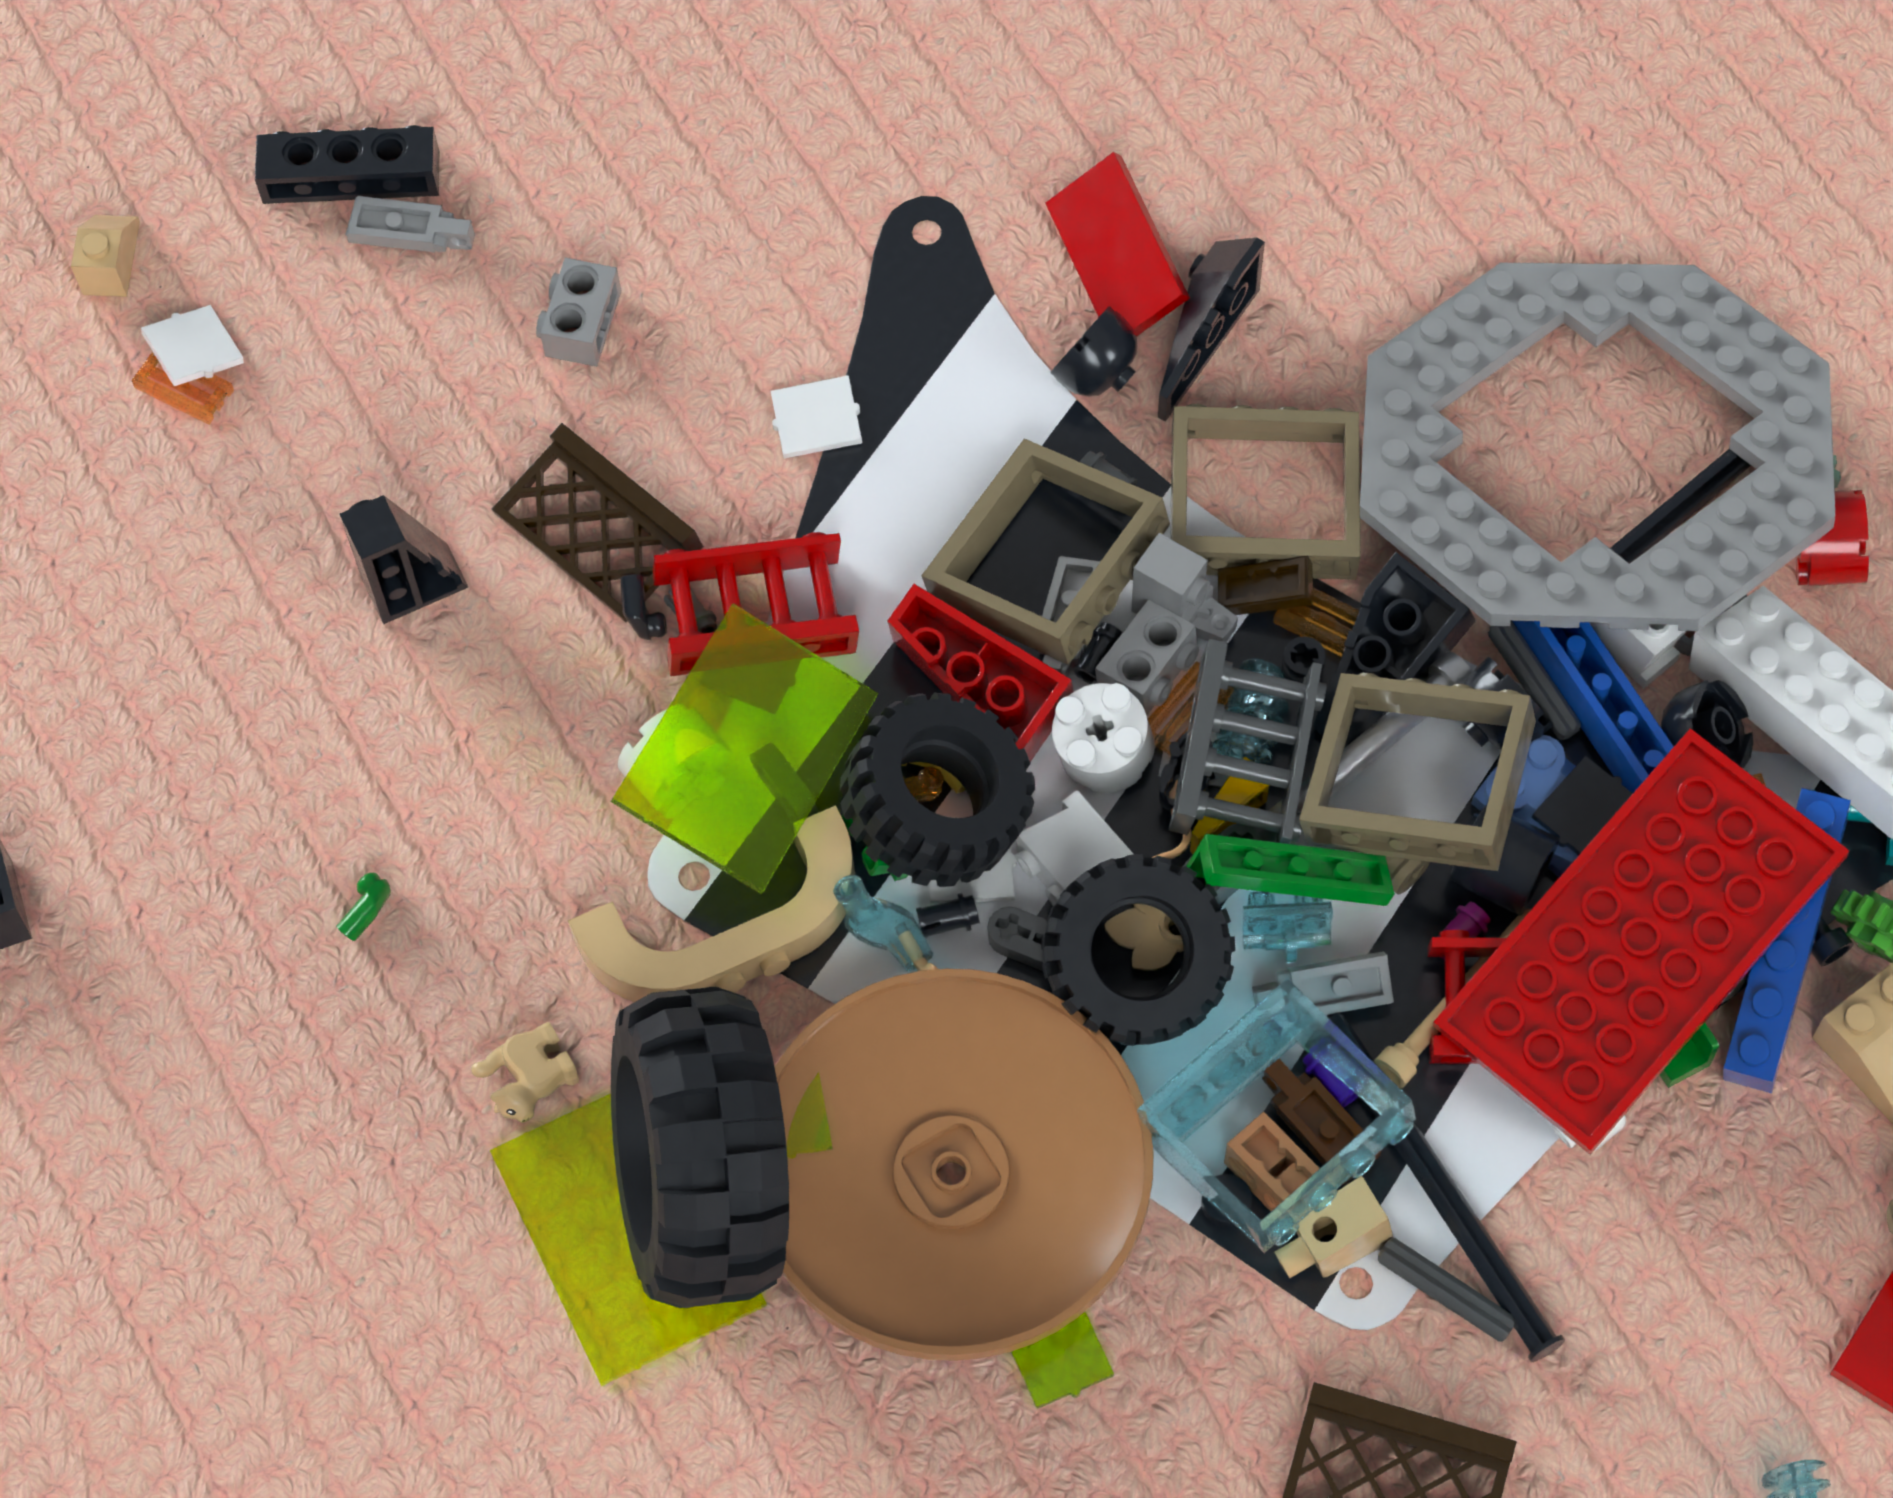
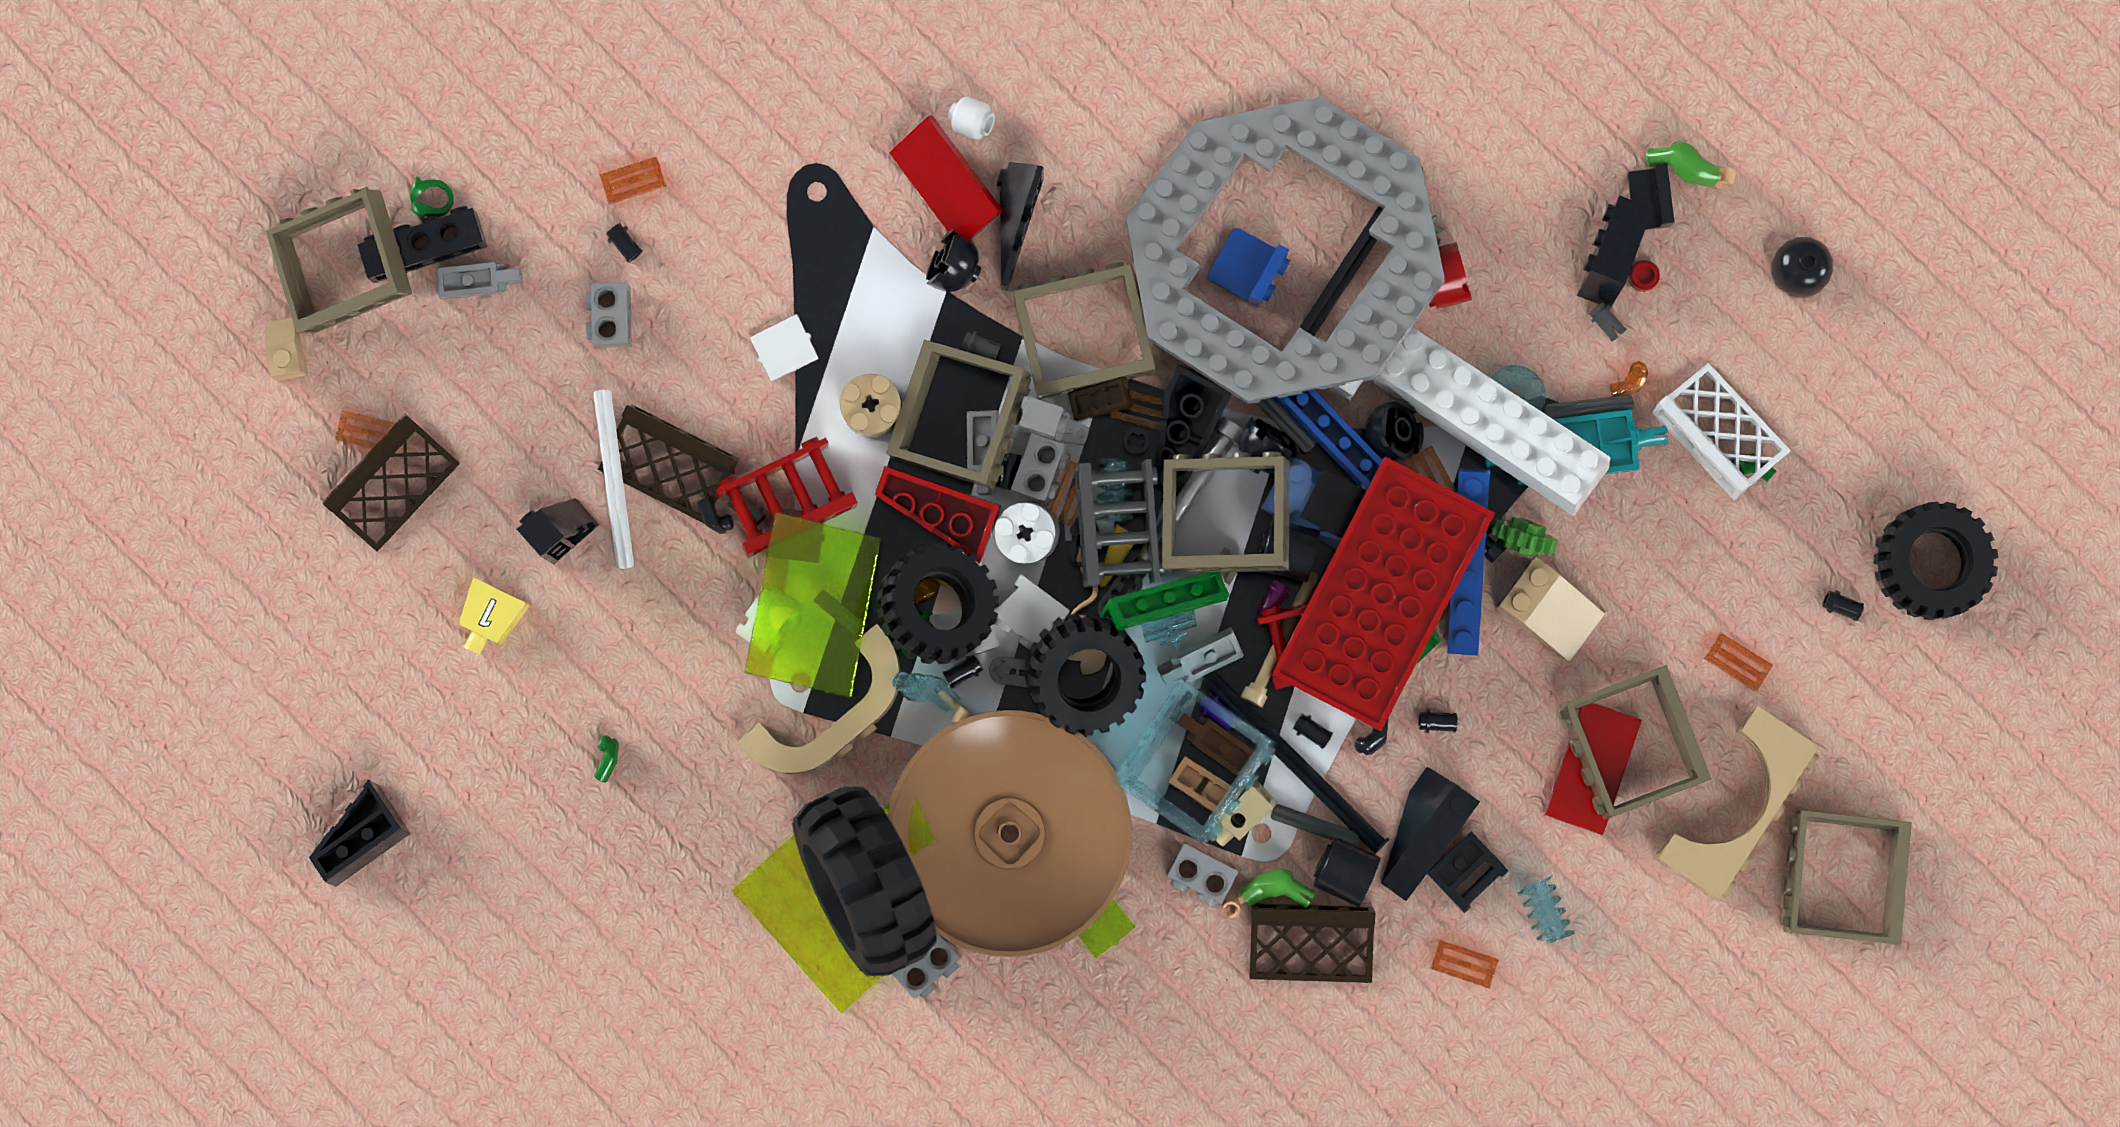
camera: 15 degrees left, 20 degrees up
(168, 416) = (371, 463): none -> dark brown fence
(192, 345) = (365, 404): white piece -> none
(235, 203) = (292, 277): none -> dark tan window
(264, 660) = (489, 615): none -> light yellow torso
(376, 95) = (424, 210): none -> green piece
(509, 523) = (613, 479): none -> white axle
(535, 1073) = (746, 839): tan animal -> none
(627, 219) = (624, 243): none -> black pin
(670, 150) = (605, 177): none -> clear orange tile
(752, 1327) = (931, 970): none -> light grey brick
(917, 510) = (855, 397): none -> tan brick
(1177, 182) = (971, 118): none -> white head
(1254, 1306) = (1205, 867): none -> light grey brick
(1351, 1357) = (1268, 884): none -> bright green arm
(1476, 1141) = (1312, 730): none -> black pin
(1481, 1365) = (1345, 871): none -> black piece
(1535, 465) = (1248, 267): none -> blue bracket
(1574, 1182) = (1372, 741): none -> black arm
(1636, 1333) = (1429, 823): none -> black wedge
(1674, 1411) = (1460, 864): none -> black plate
(1683, 1179) = (1437, 721): none -> black pin

